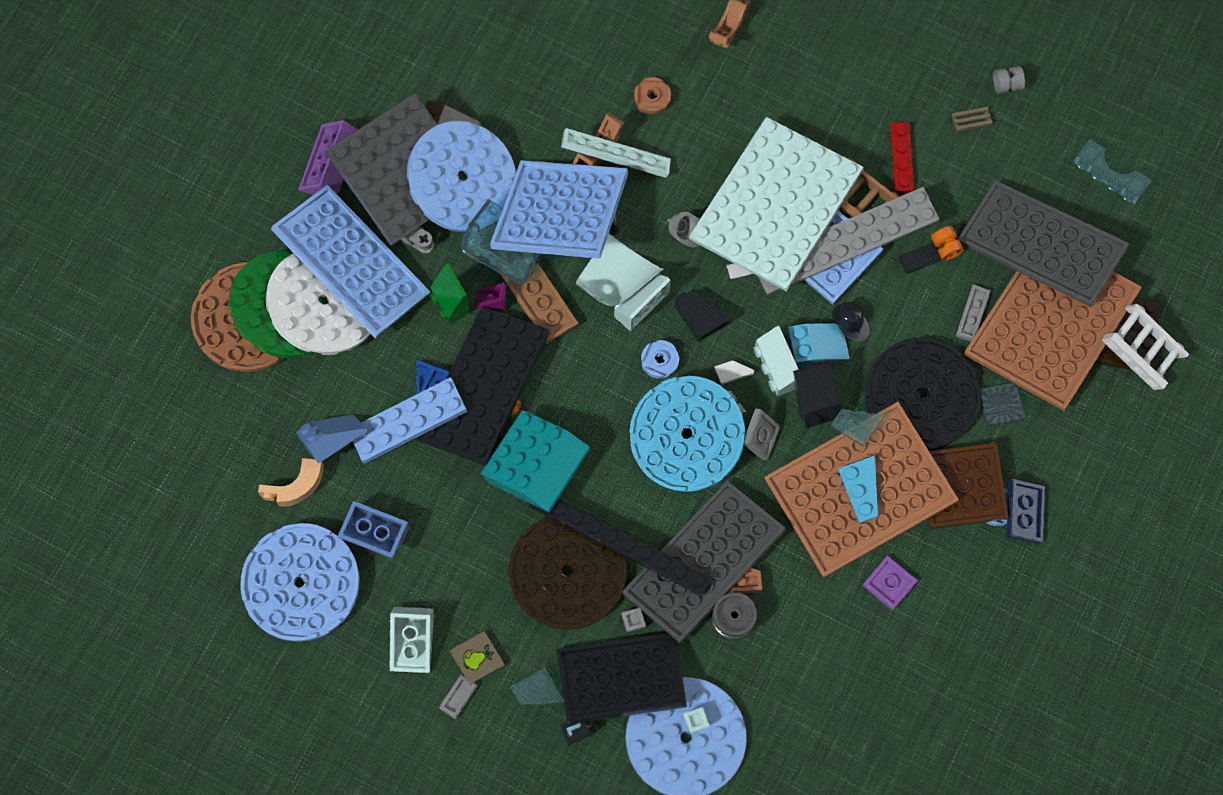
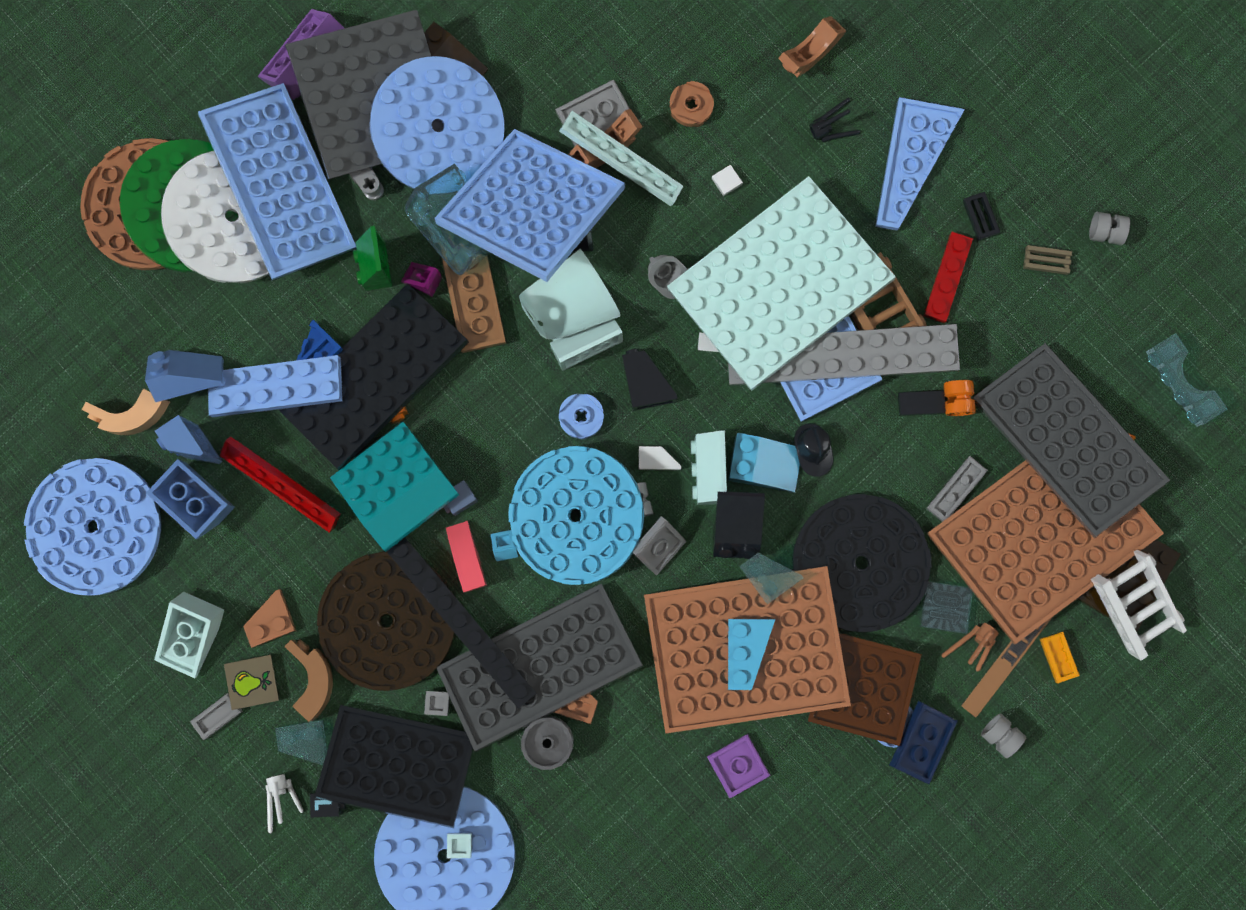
camera: 25 degrees right, 10 degrees up
(357, 484) = (186, 440): none -> medium blue slope
(440, 495) = (280, 484): none -> red plate
(473, 606) = (270, 621): none -> nougat wing
(530, 732) = (275, 787): none -> white plant
(534, 648) = (319, 680): none -> medium nougat arch
(583, 119) = (598, 106): none -> light grey tile
(592, 456) = (463, 501): none -> sand blue brick
(612, 499) = (466, 557): none -> coral slope
(638, 480) = (503, 546): none -> medium azure slope
(702, 143) = (727, 180): none -> white tile
(760, 79) = (821, 127): none -> black plant
(837, 71) = (915, 145): none -> light blue wing
(923, 111) = (974, 222): none -> black tile
(1040, 416) = (984, 636): none -> nougat plant
(1062, 436) = (999, 671): none -> medium nougat sticker
(1084, 483) = (999, 732): none -> light grey wheel
(1102, 410) = (1059, 657): none -> light orange plate

